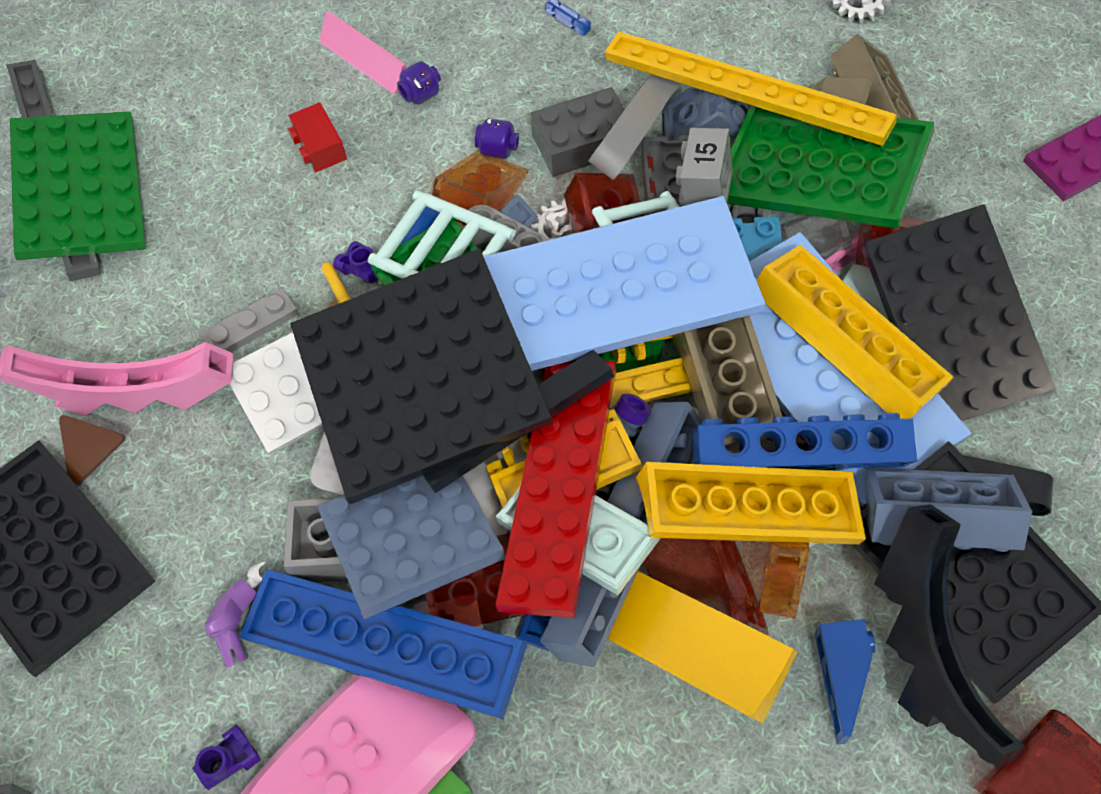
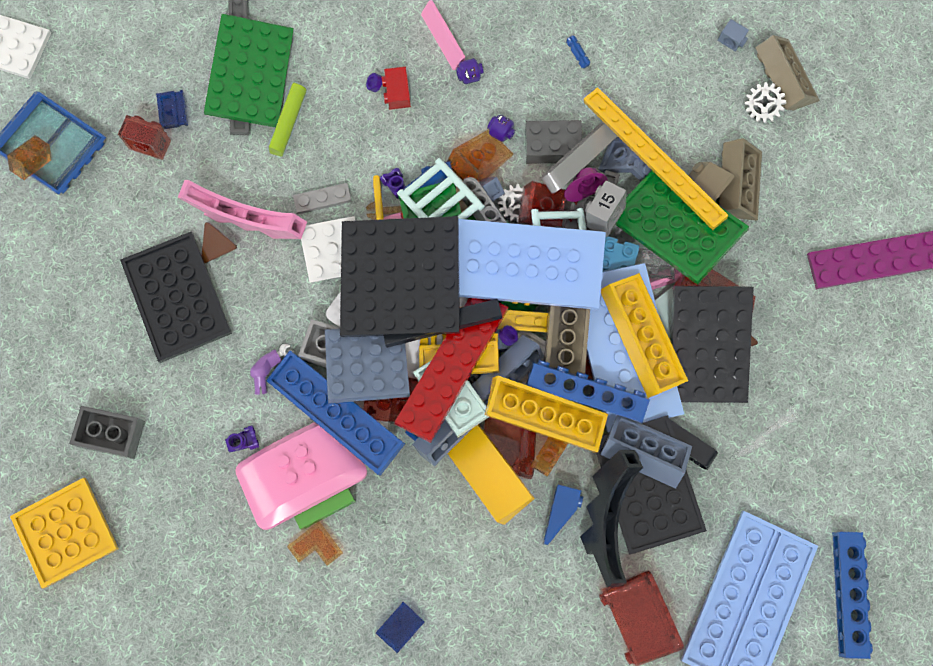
camera: 15 degrees right, 15 degrees up
(156, 232) = (287, 119): none -> lime brick
(279, 141) = (374, 82): none -> dark purple tile
(658, 156) = (584, 184): none -> magenta piece

